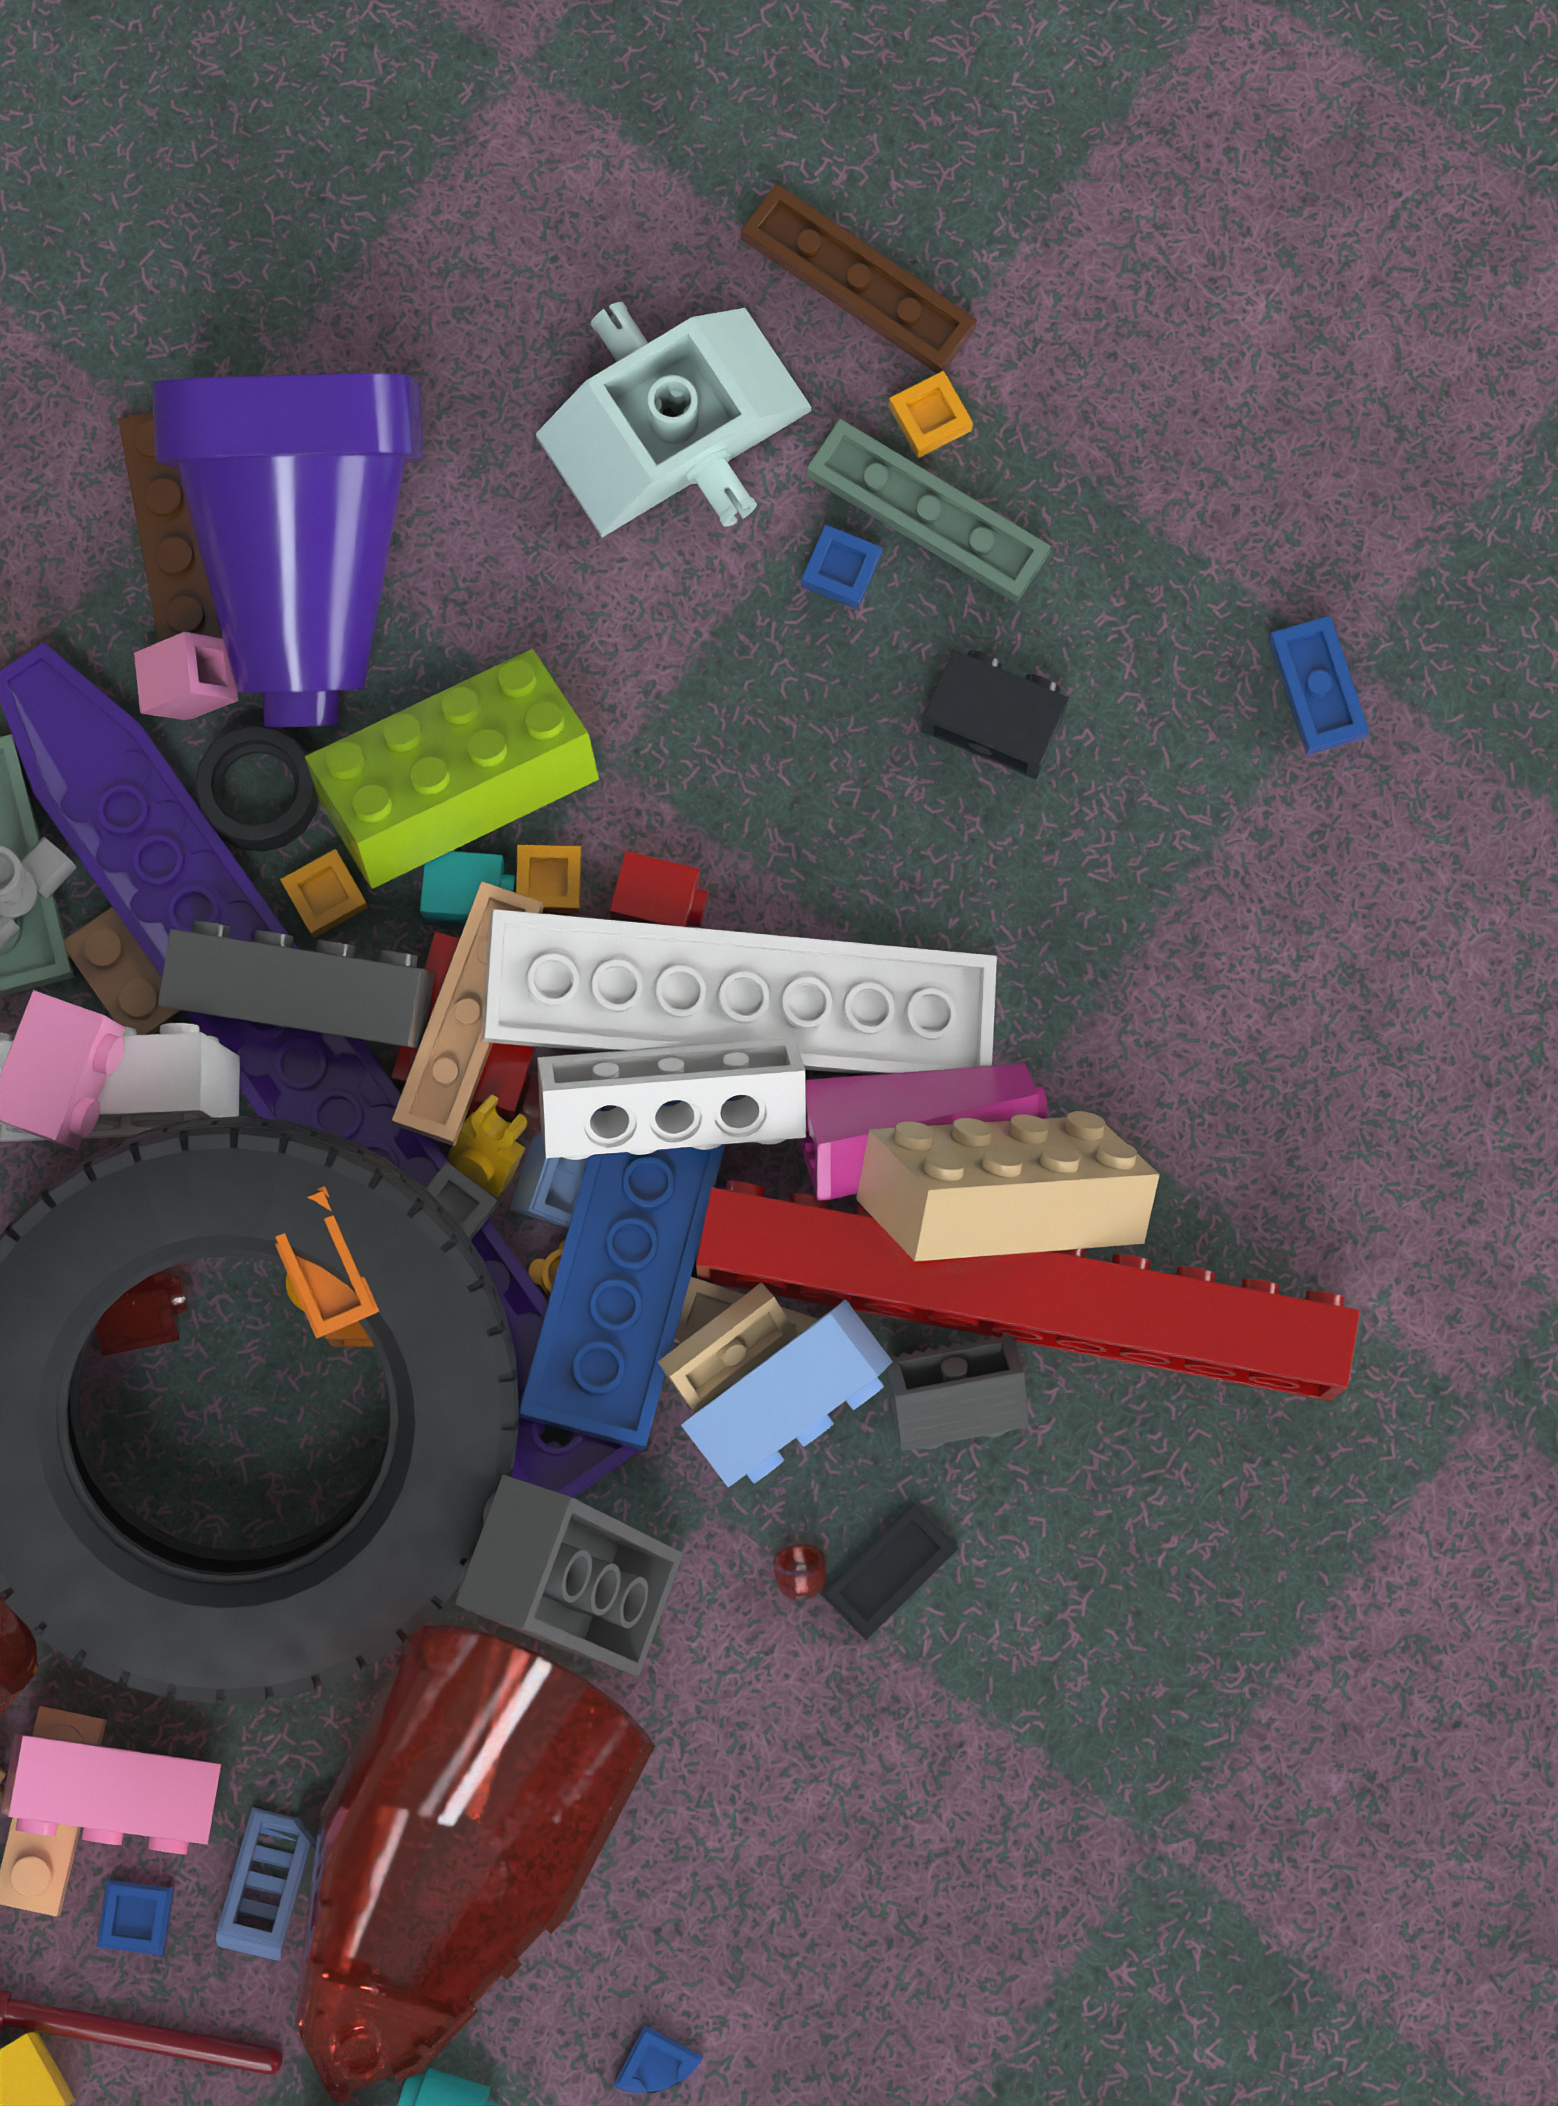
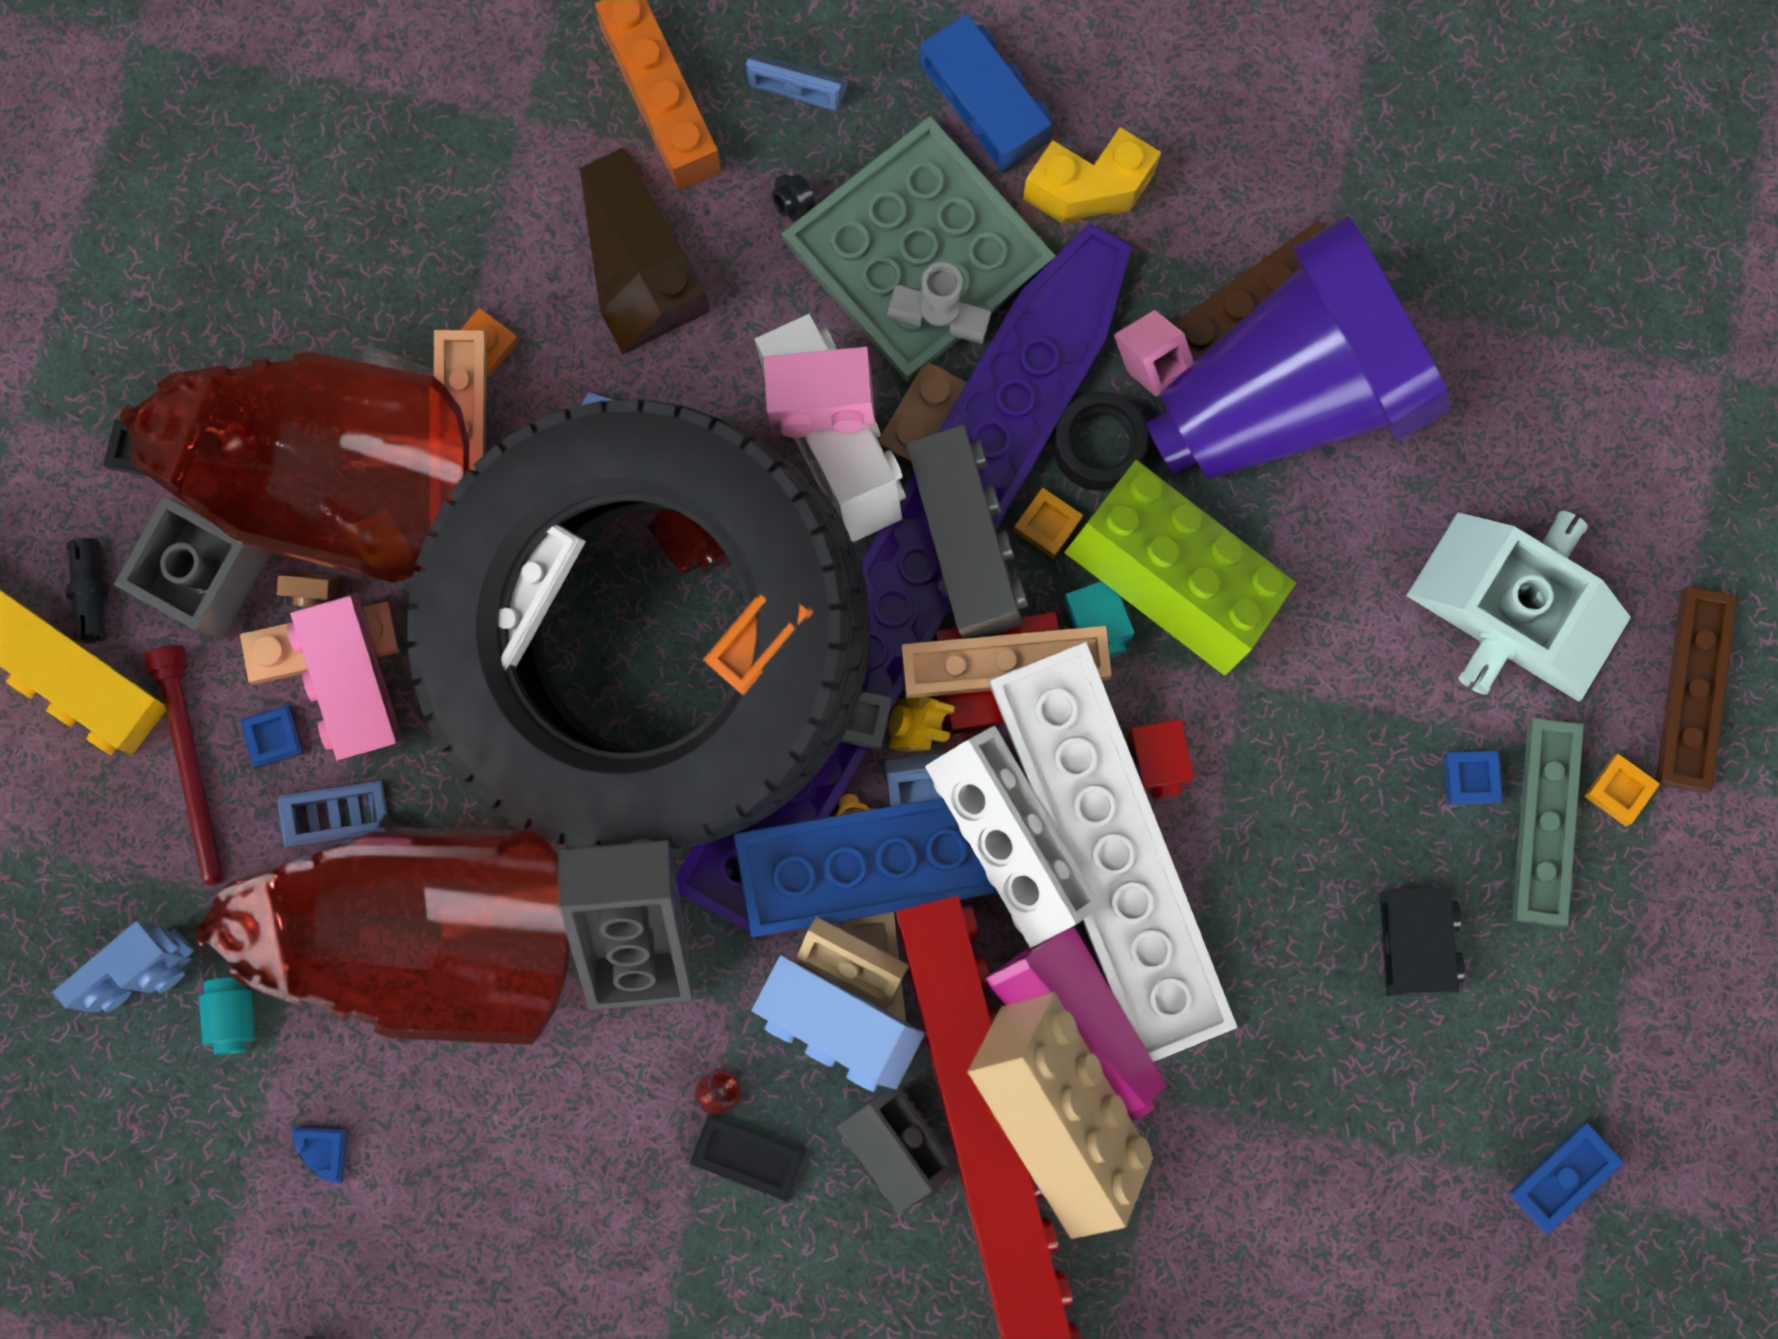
camera: 65 degrees right, 0 degrees up
(130, 1501) = (536, 590): none -> white tile
(550, 876) = (1137, 675): light orange plate -> none

